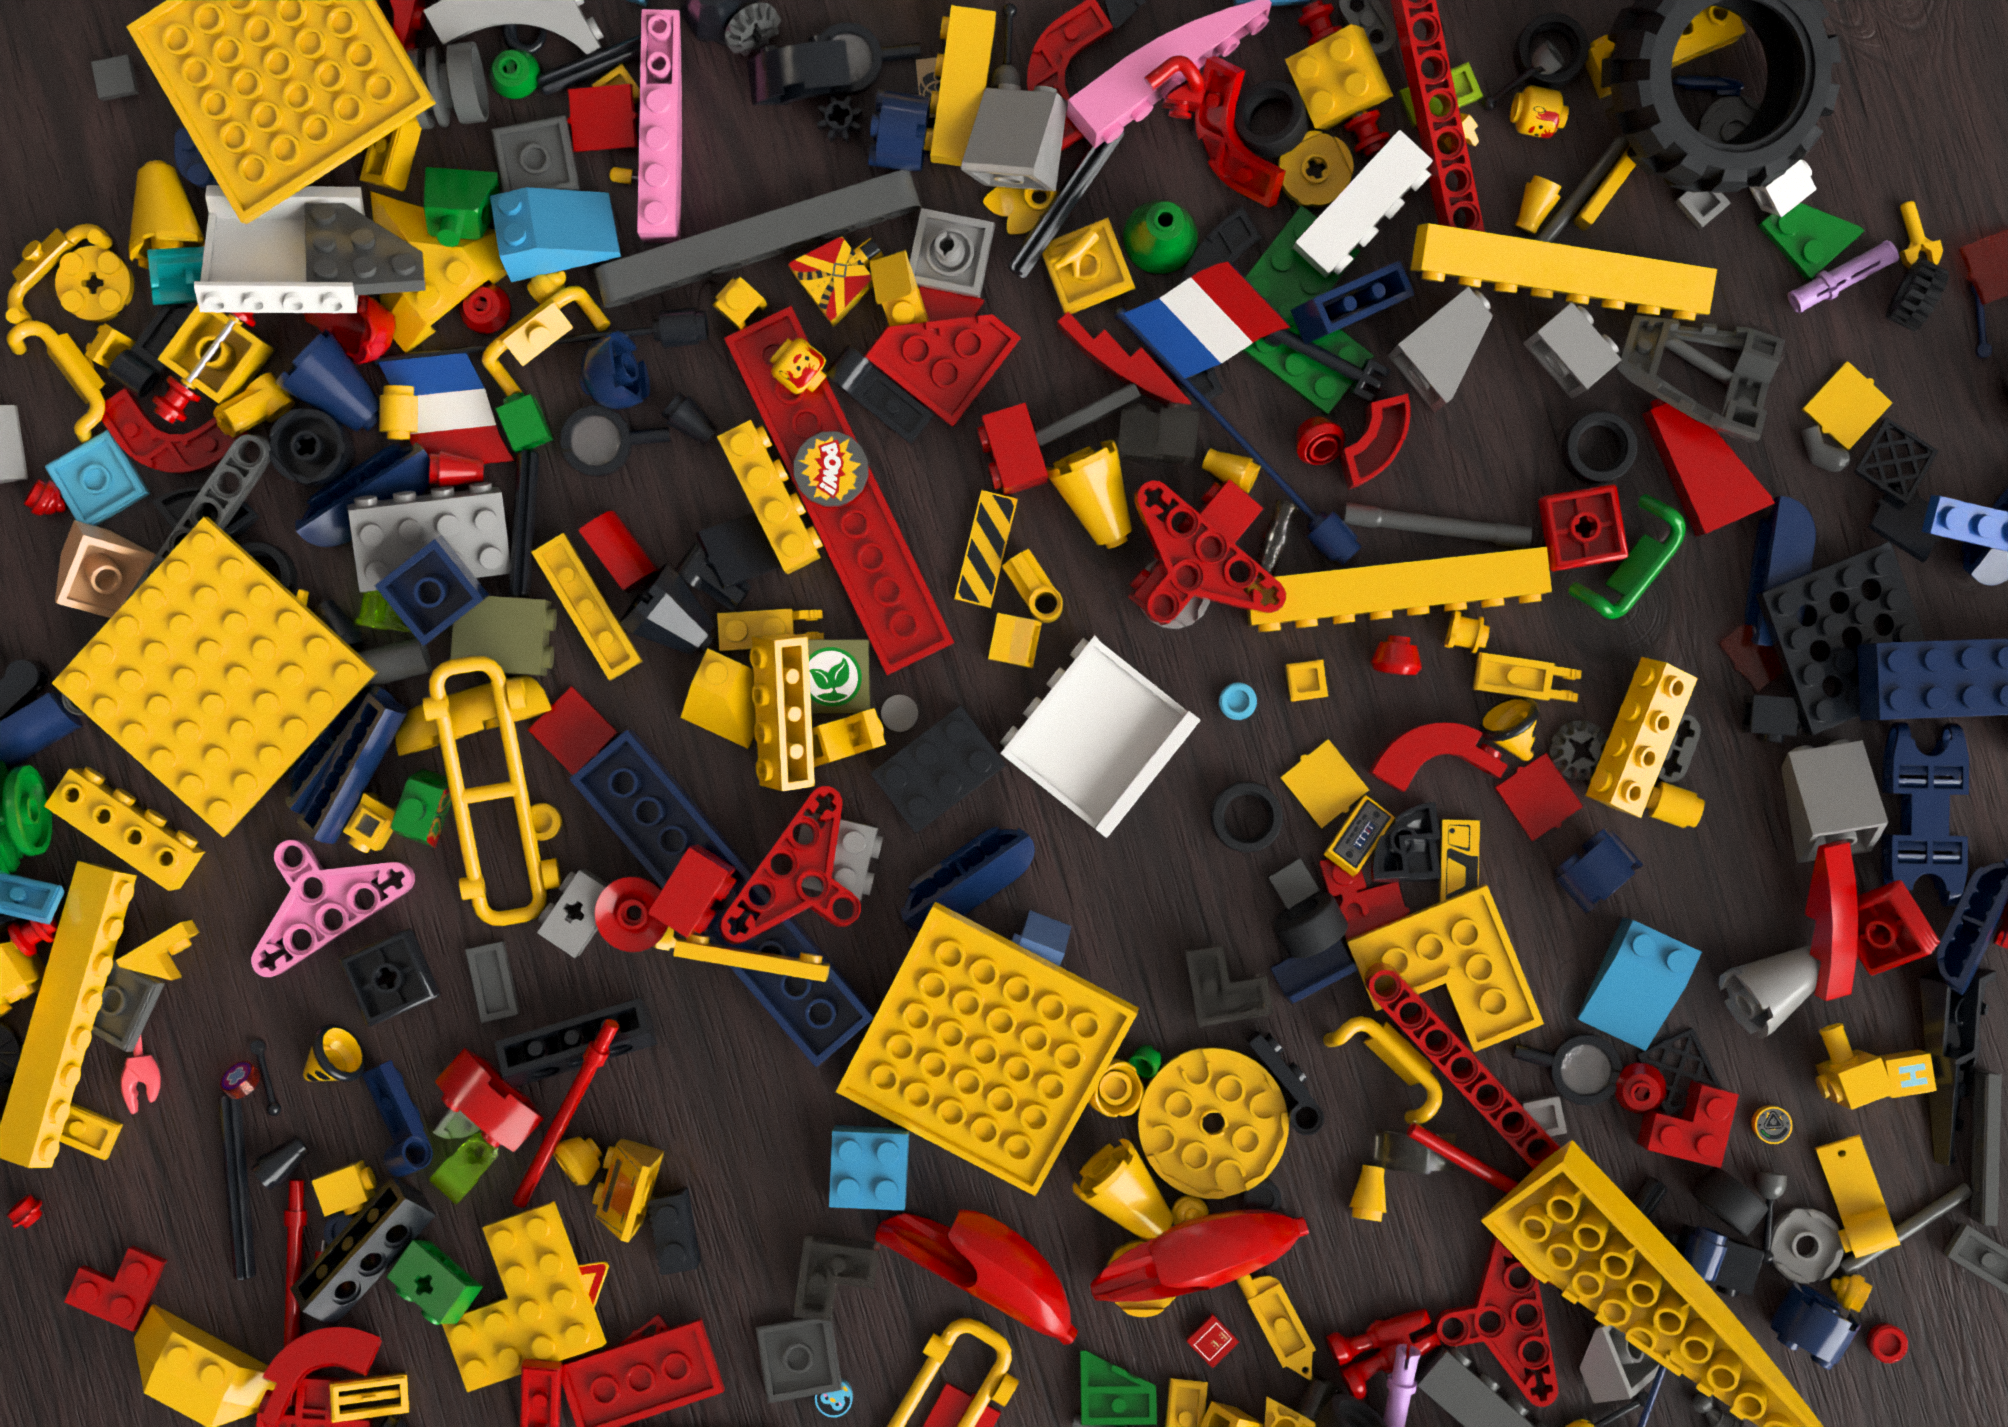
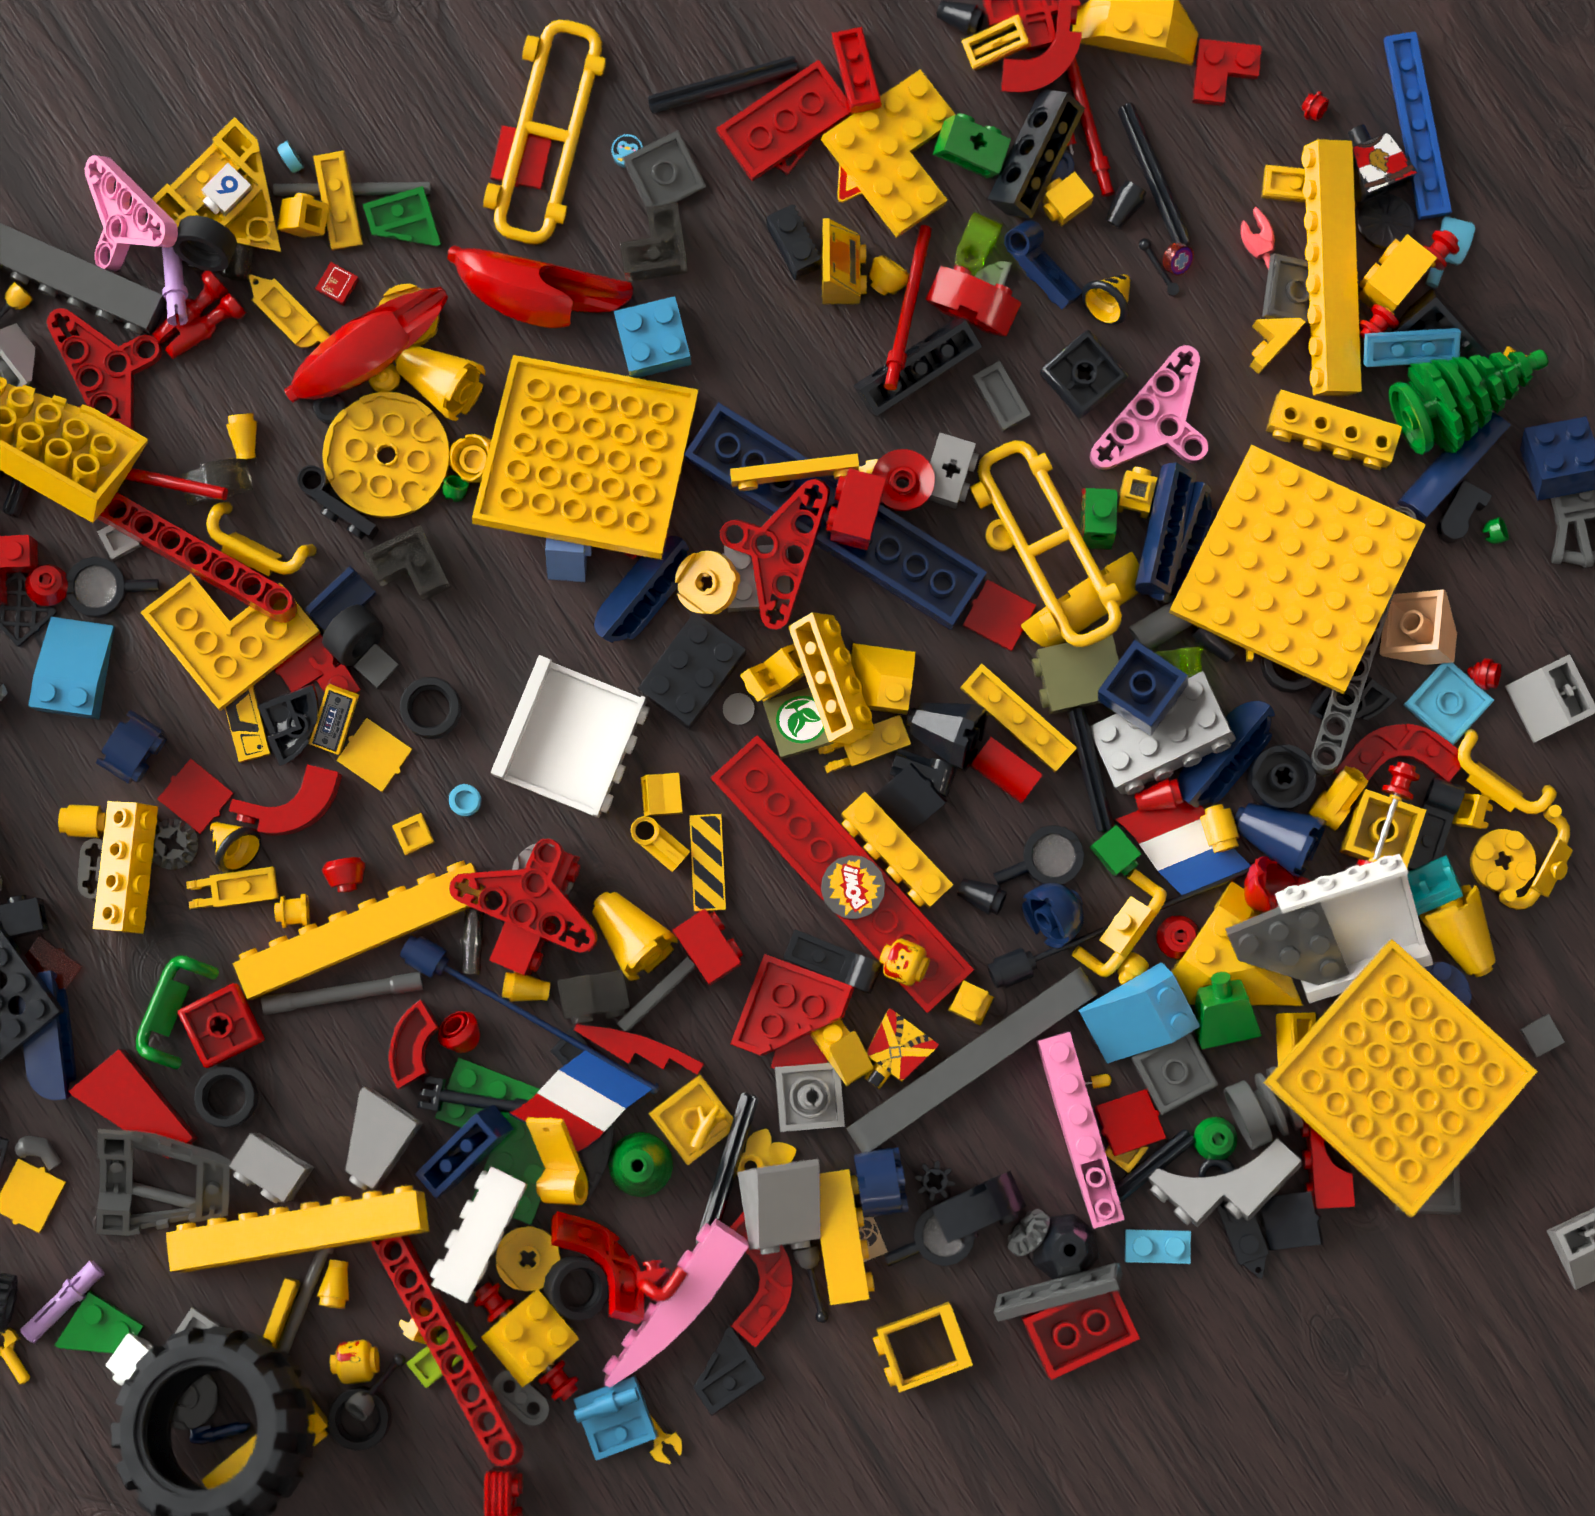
camera: 160 degrees right, 5 degrees down
(870, 862) = (724, 580): none -> yellow plate
(1249, 244) = (563, 1174): none -> yellow door

